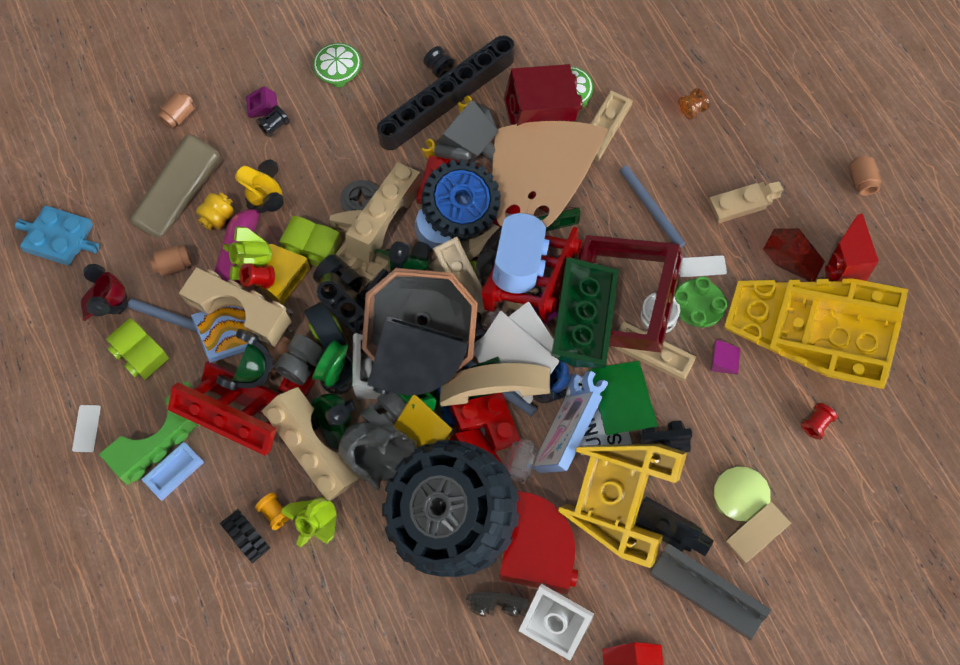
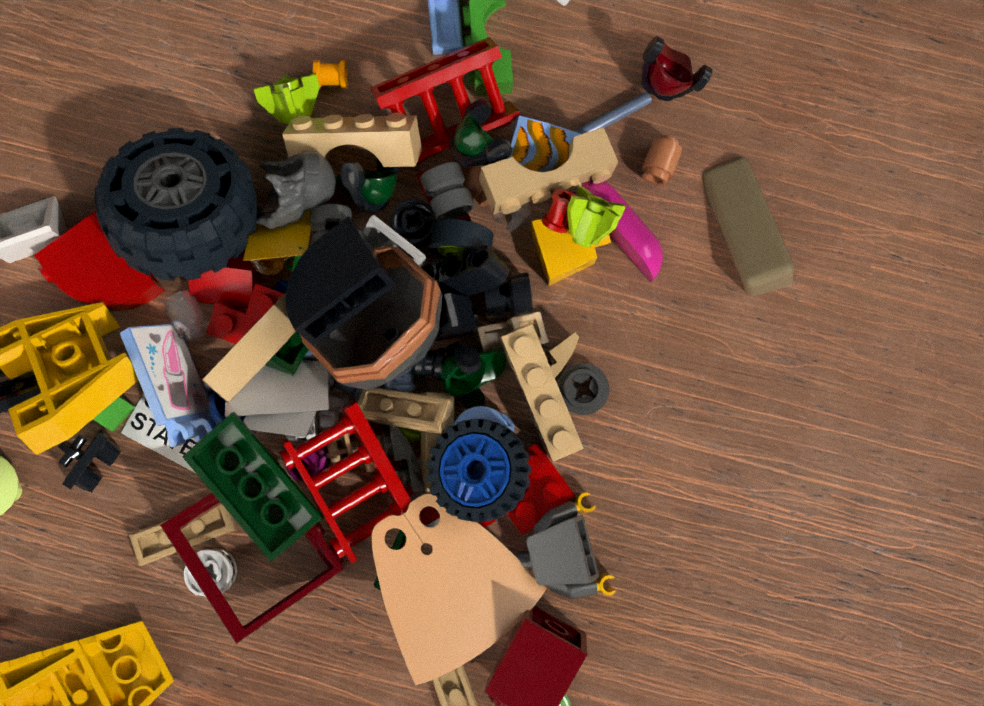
camera: 125 degrees right, 15 degrees up
(57, 235) = (780, 78): dark azure plate -> none
(137, 349) = (590, 66): lime brick -> none
(176, 109) = (842, 285): nougat brick -> none
(215, 211) = (683, 236): yellow piece -> none
(245, 536) = (322, 29): black tyre -> none
(260, 102) = (783, 379): magenta slope -> none
(260, 188) = (669, 297): cap -> none
(272, 121) = (748, 370): black bush -> none
(310, 240) = (573, 301): lime brick -> none
(331, 363) = (410, 210): green piece -> none
(337, 64) = (771, 493): dish -> none
(438, 61) = (682, 599): black wheel -> none
(487, 602) = (76, 203): clear smoke slope -> none
(495, 56) = (642, 592): black beam -> none
(520, 253) = (363, 474): light blue brick -> none
(625, 399) = (150, 461): green sticker -> none
(652, 206) = (328, 672): sand blue bar -> none
(700, 302) = (186, 623): bright green dish -> none
(703, 266) = (225, 665): white sticker -> none
(725, 358) = (116, 592): magenta slope -> none

